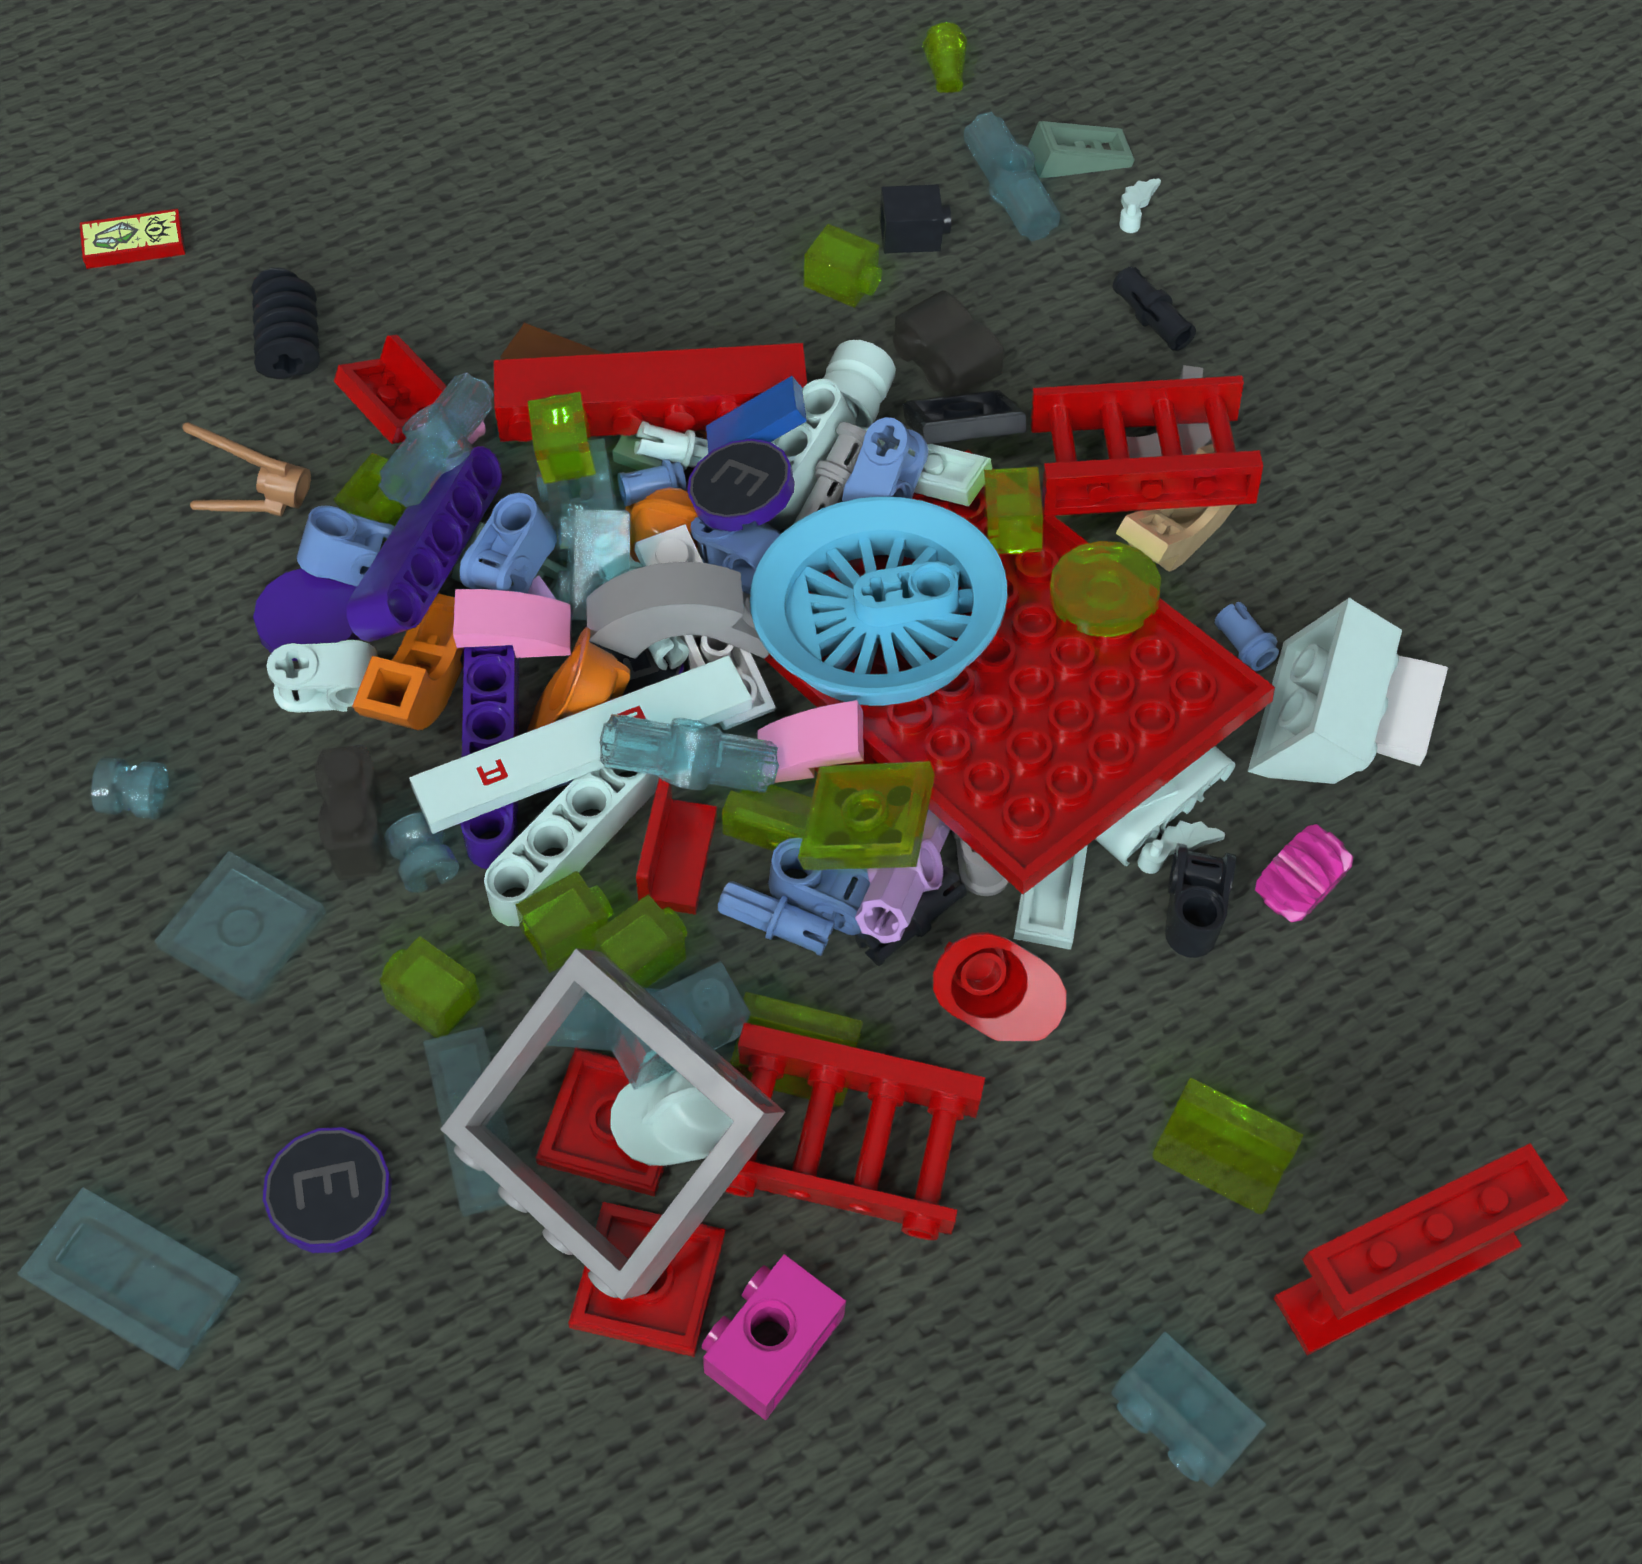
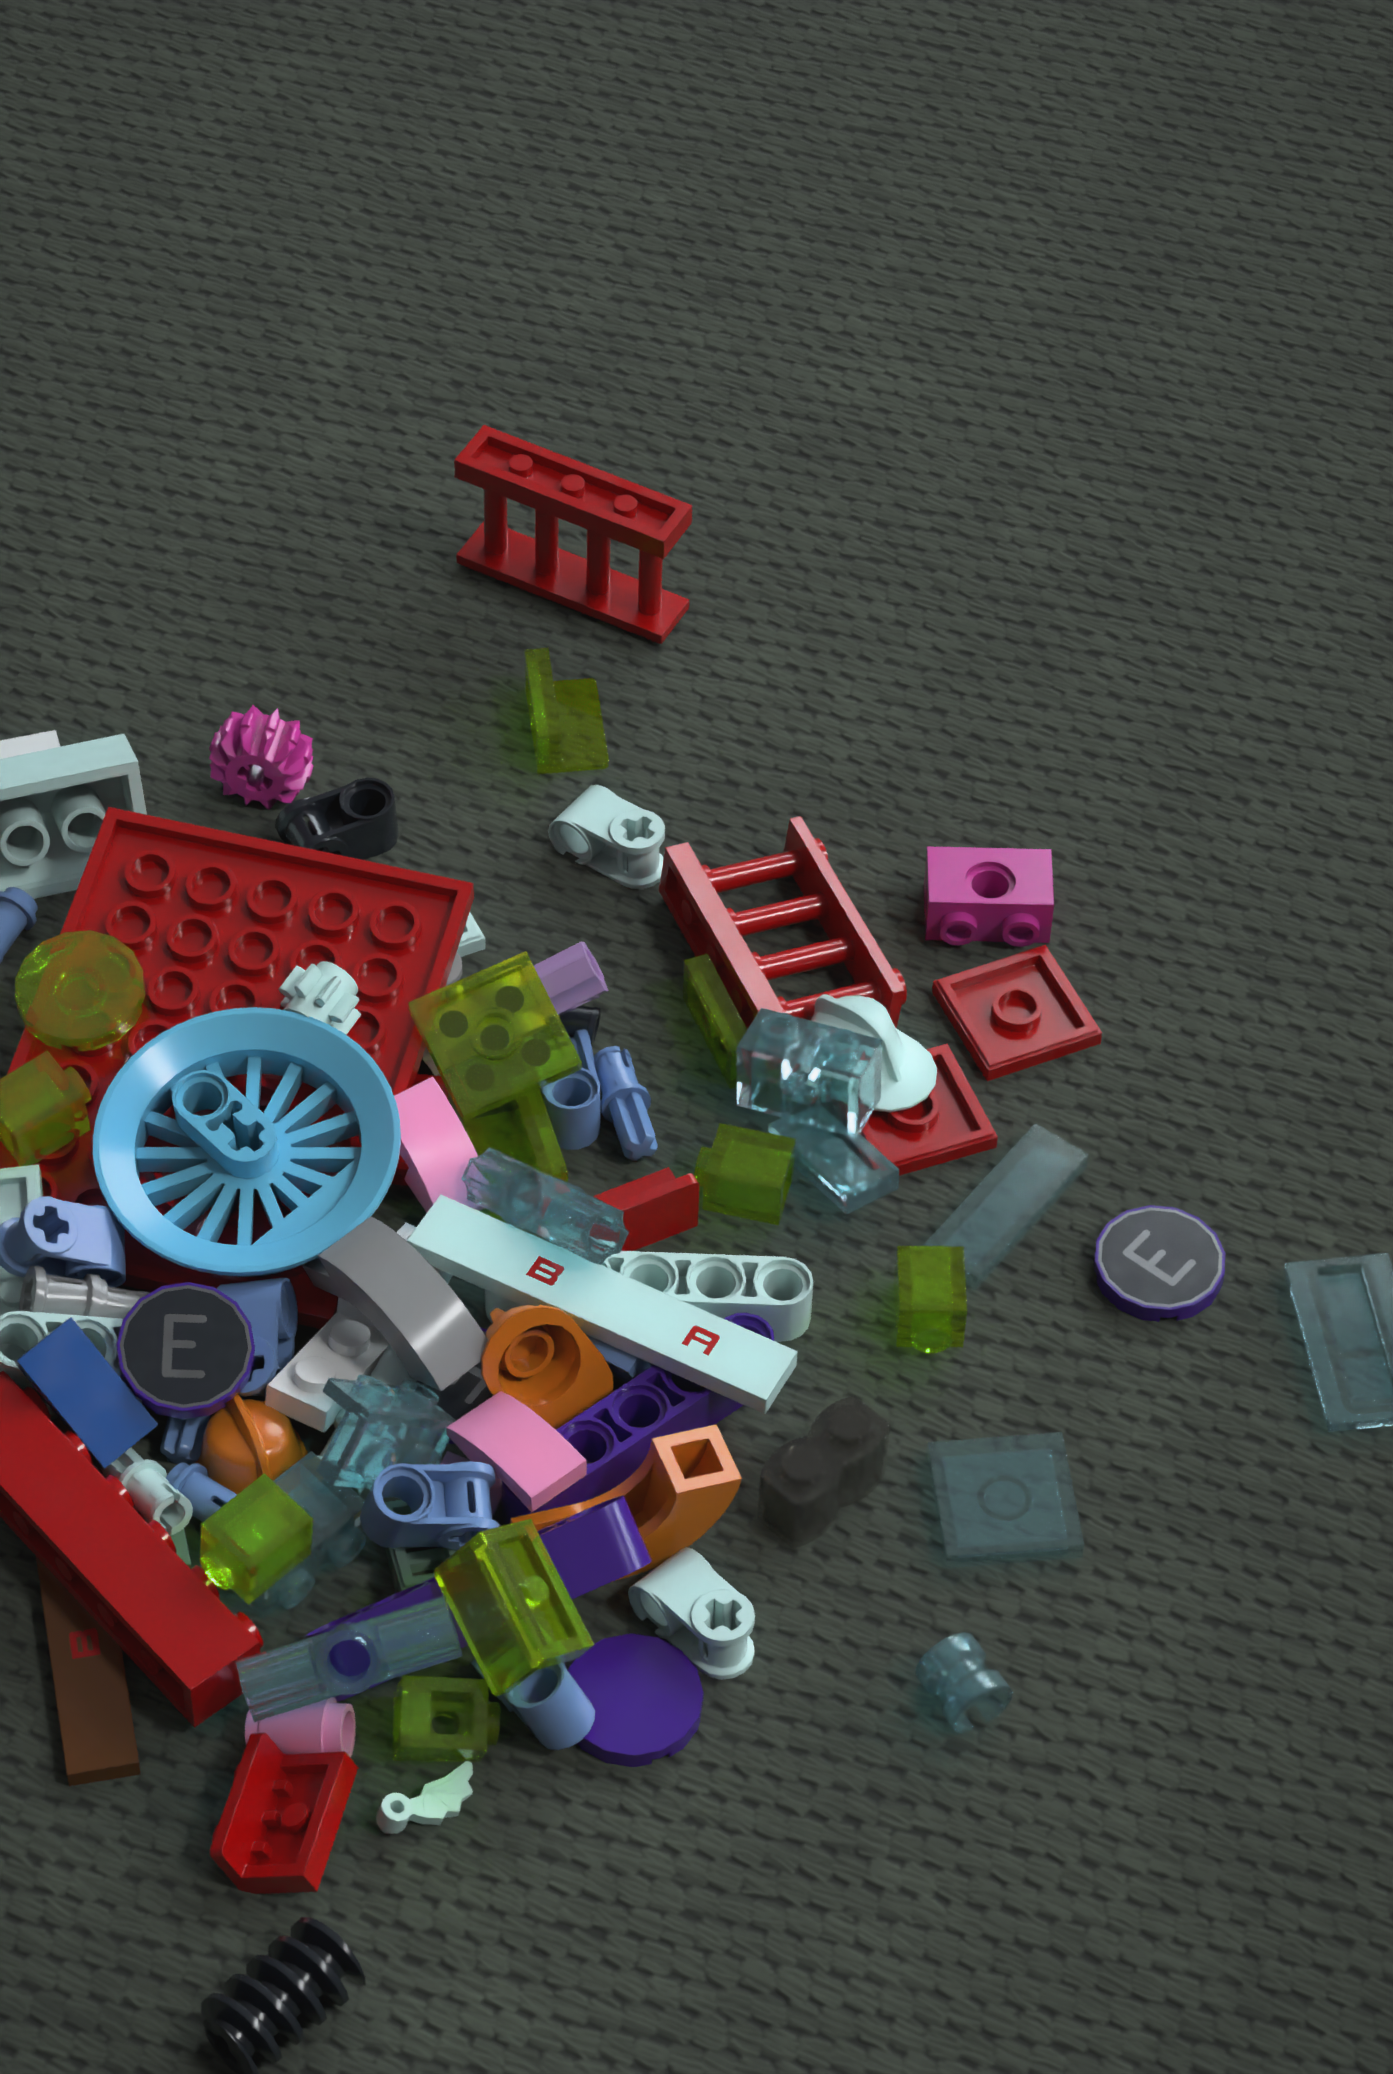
camera: 125 degrees left, 10 degrees down
(277, 480) = (500, 1849): medium nougat plant -> none
(342, 470) = (437, 1801): none -> light aqua piece
(371, 517) = (511, 1605): none -> clear neon green panel
(419, 852) = (807, 1392): clear light blue wheel -> none
(563, 919) = (775, 1228): clear neon green brick -> none
(681, 1048) = (912, 1112): light grey window -> none
(970, 702) = (322, 993): none -> light aqua gear
(999, 988) = (551, 914): red piece -> none
(1063, 1083) = (608, 831): none -> light aqua piece
(1186, 1411) = (804, 643): clear light blue bracket -> none

